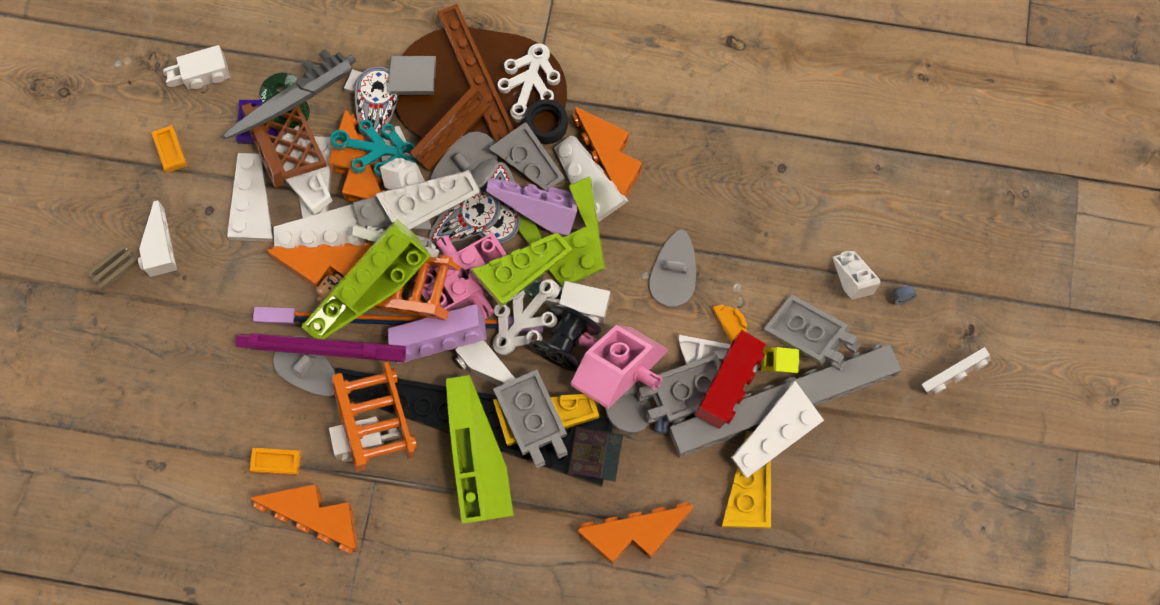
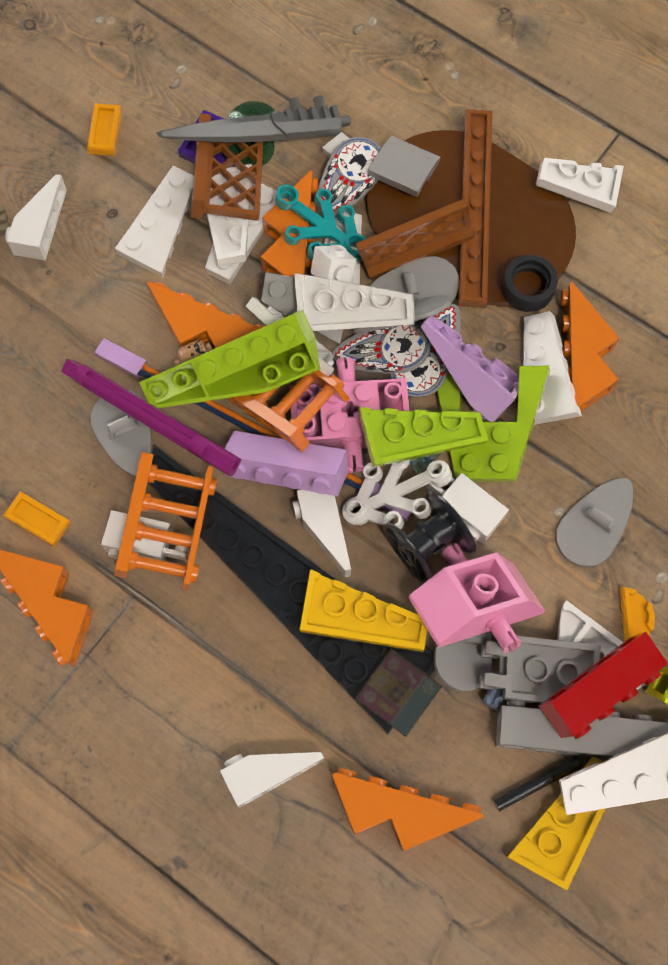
camera: 25 degrees right, 0 degrees up
(198, 69) = (178, 59): white brick -> none
(326, 228) = (222, 287): white wing -> none
(477, 459) = (258, 627): lime wedge -> none
(528, 156) = (490, 312): light grey wing -> none
(529, 78) = (533, 227): white plant -> none
(529, 555) = (258, 774): none -> white slope
(531, 416) = (344, 611): light grey tile -> none
(550, 28) = (583, 183): none -> white wing
(718, 468) = (537, 783): none -> black bar

